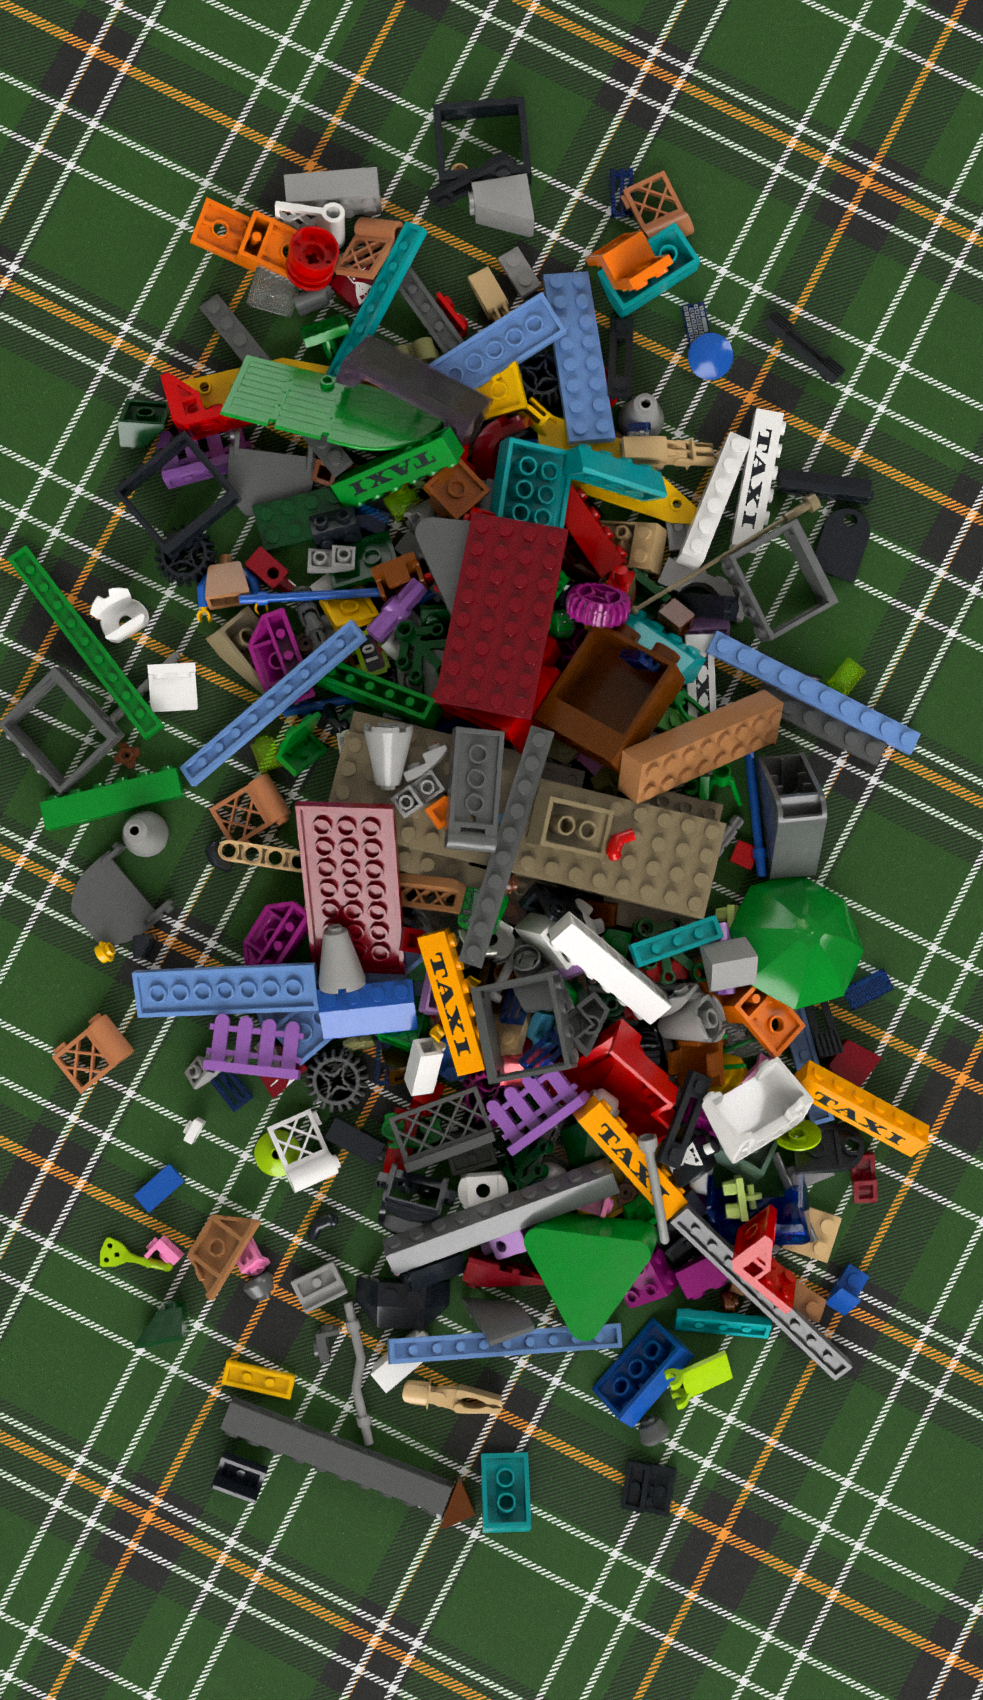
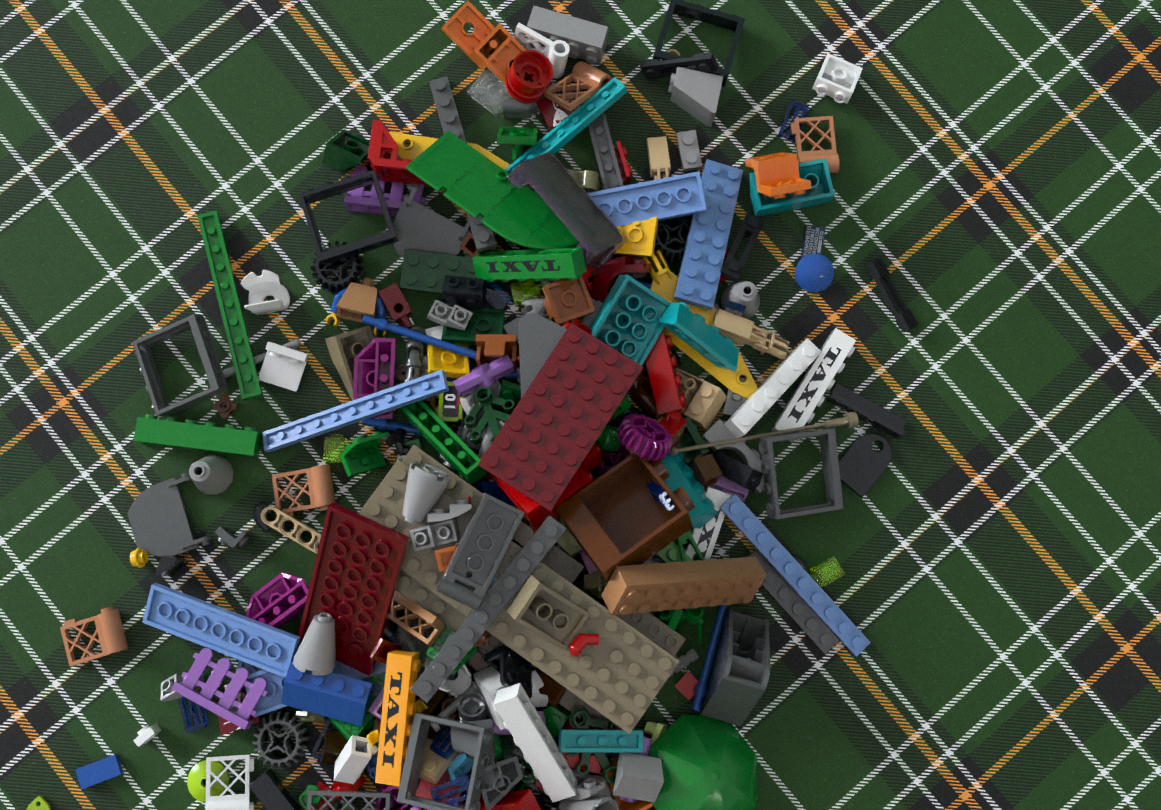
camera: 15 degrees right, 5 degrees down
(190, 894) = (227, 538): none -> dark grey bracket
(653, 125) = (837, 79): none -> white plate

